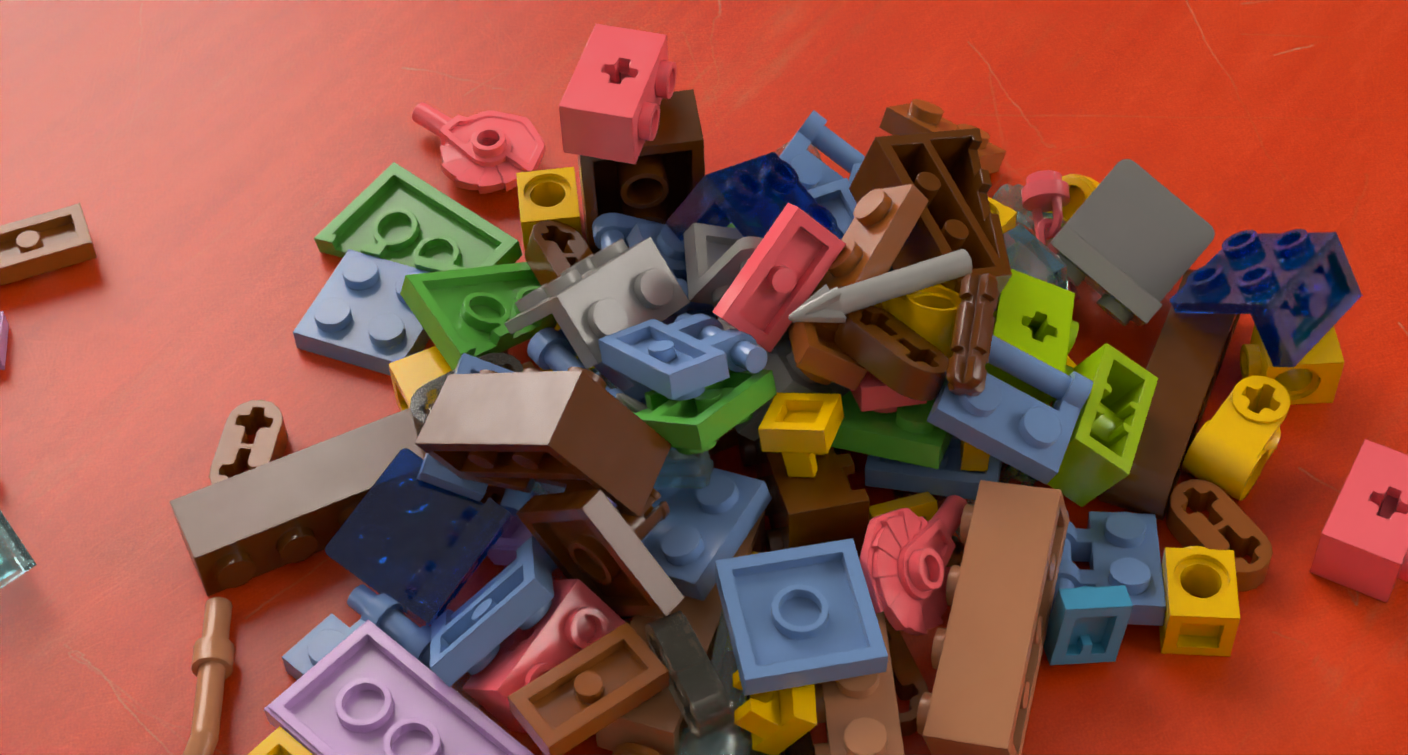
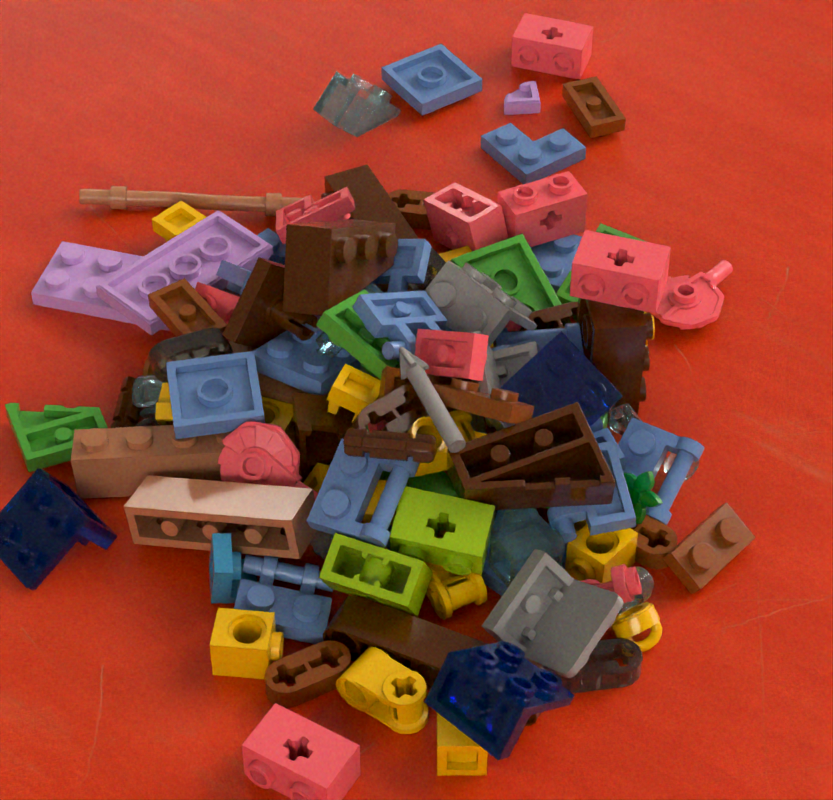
camera: 90 degrees right, 5 degrees down
(131, 331) = (532, 159): none -> medium blue plate
(307, 578) = (330, 208): none -> coral plate
(329, 272) = (545, 208): none -> coral brick
(331, 366) = (464, 218): none -> coral brick

